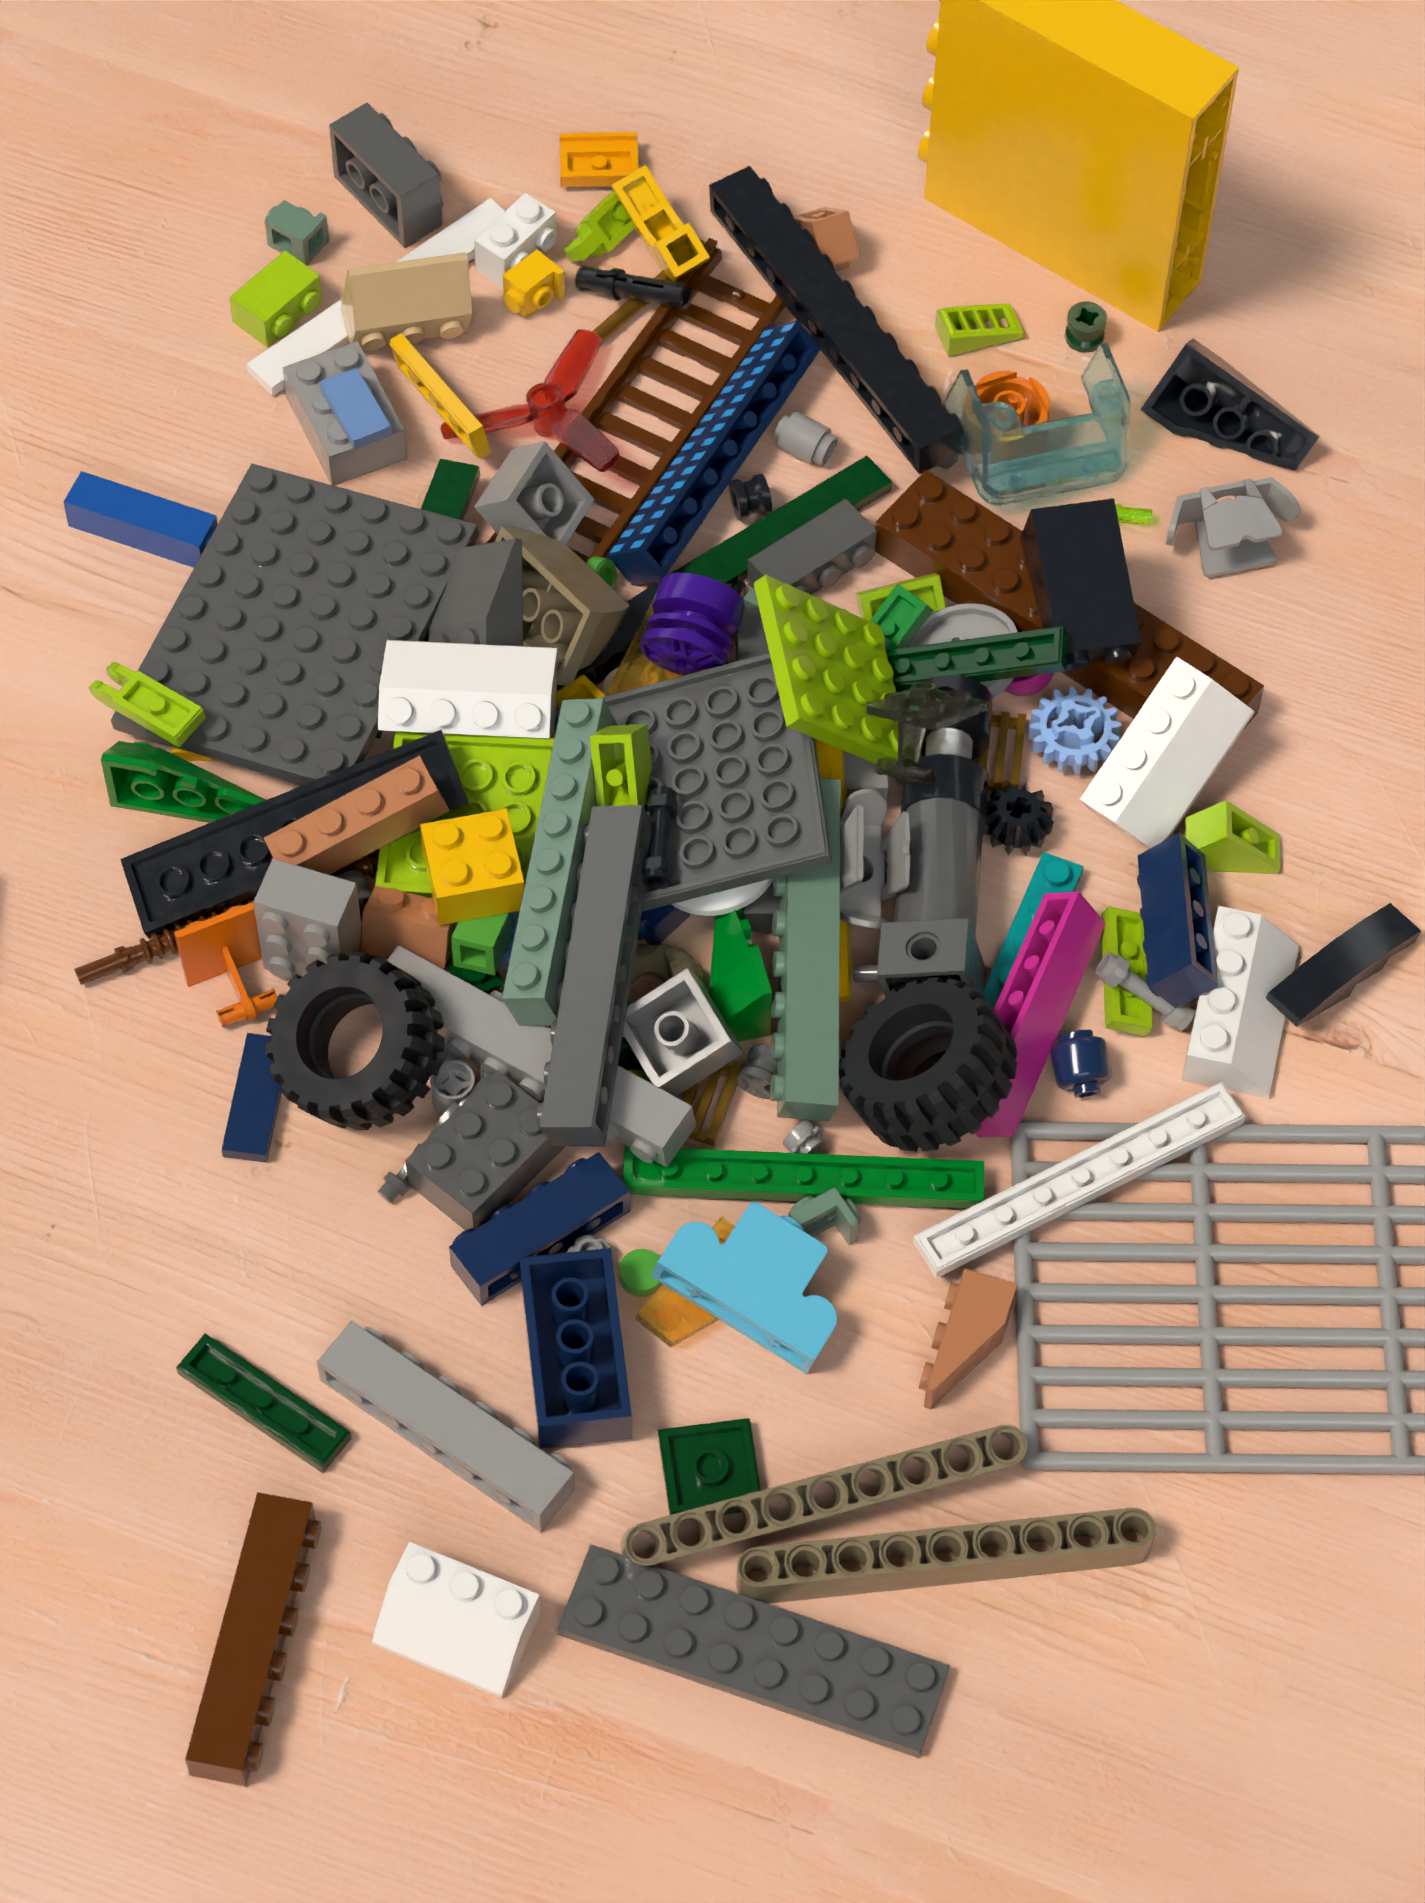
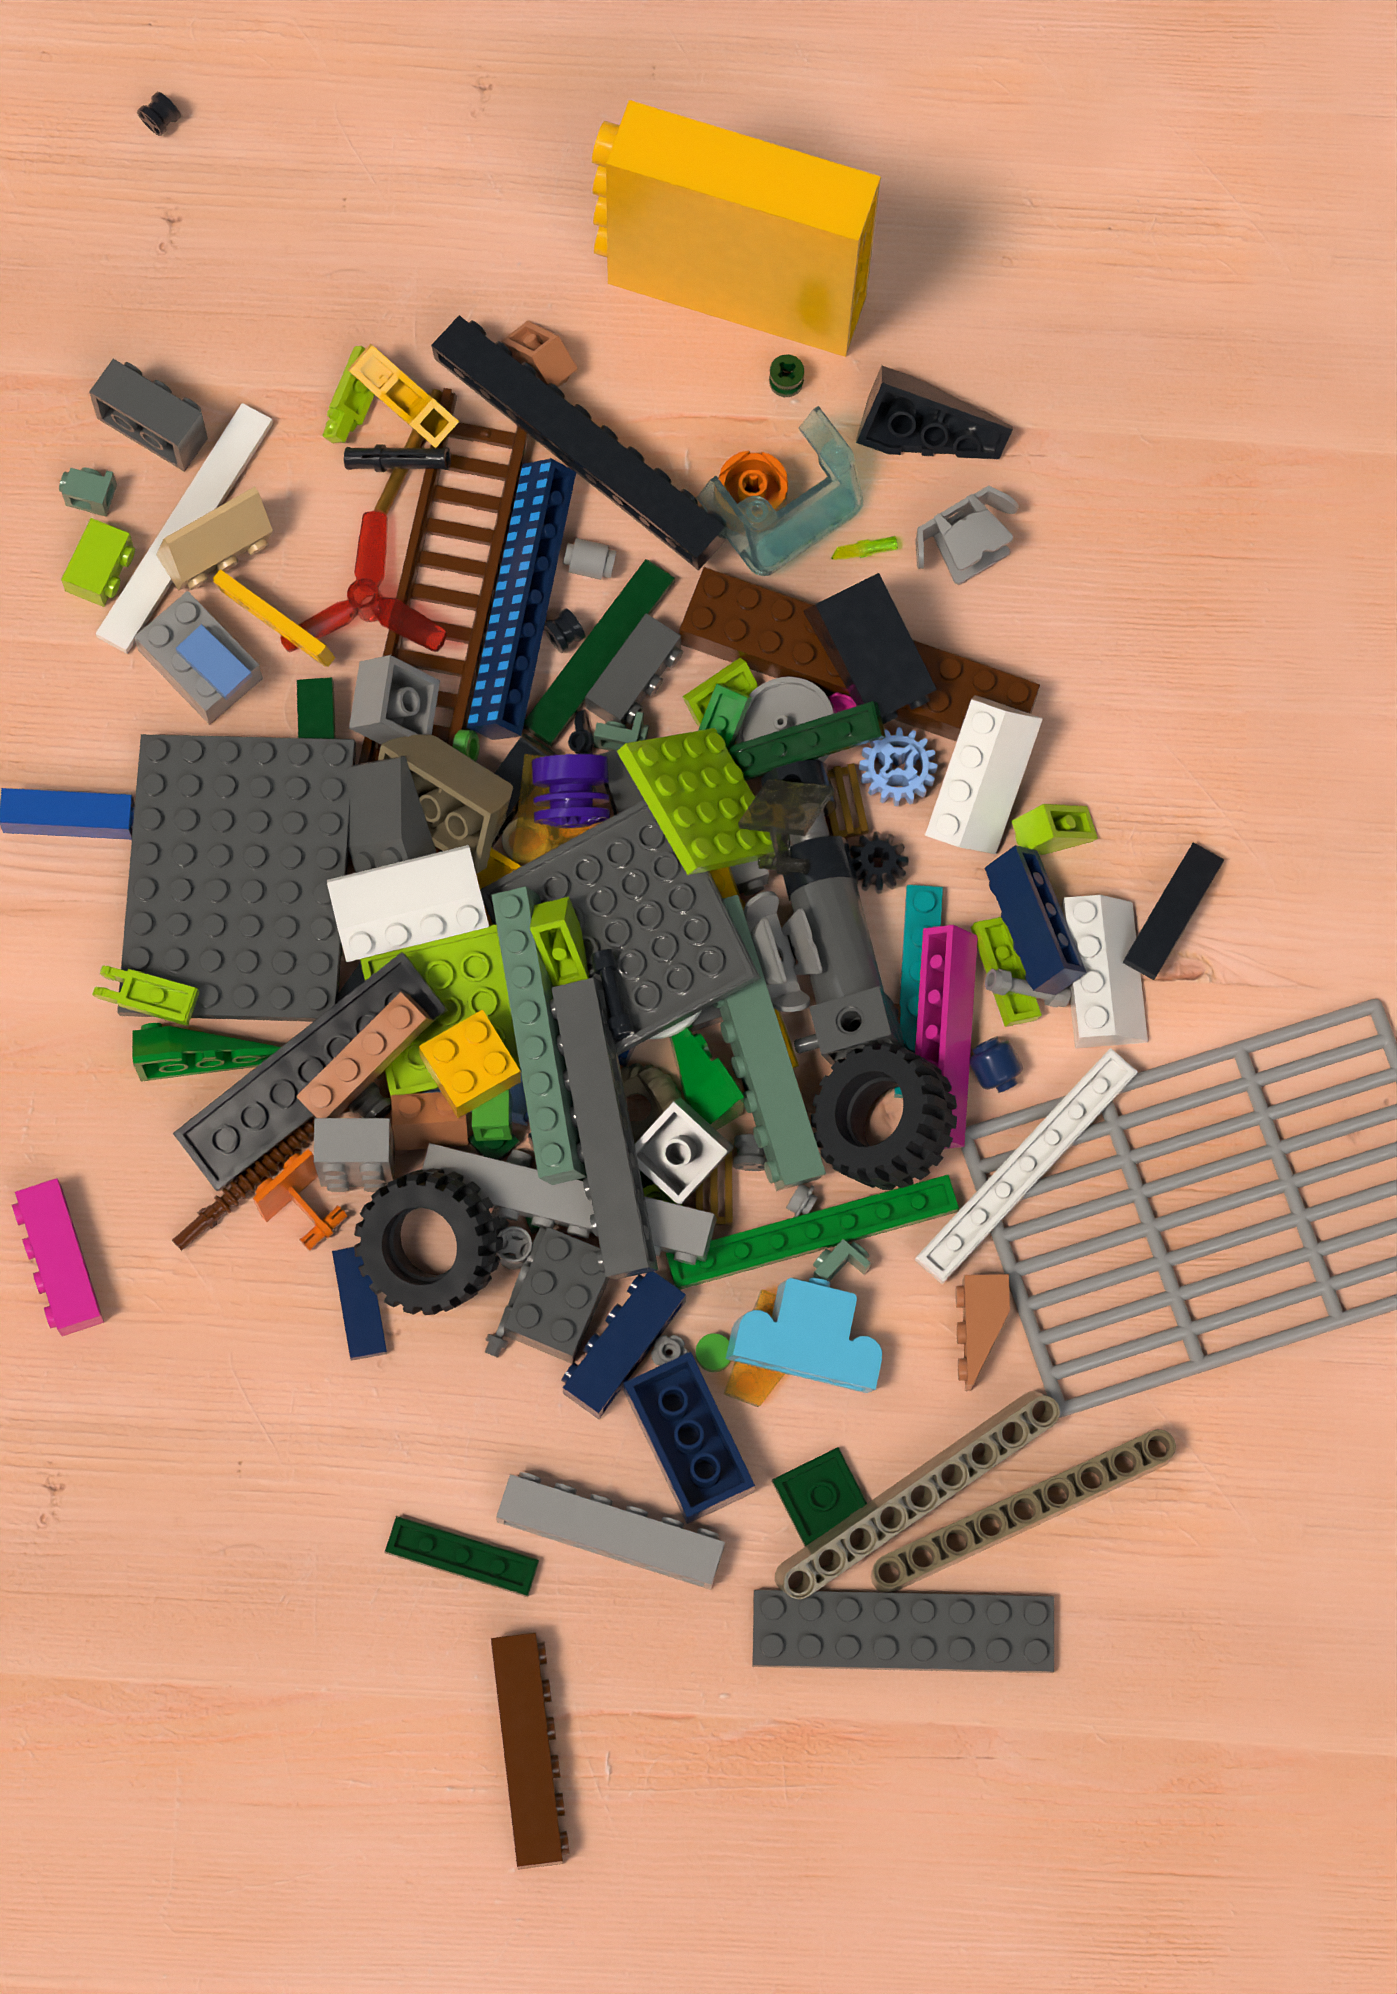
camera: 20 degrees left, 15 degrees up
(456, 1619) = (675, 1686): white slope -> none
(513, 237) = (281, 442): white brick -> none
(533, 284) = (310, 480): yellow brick -> none
(597, 158) = (320, 334): light orange plate -> none
(970, 339) = (681, 424): lime slope -> none

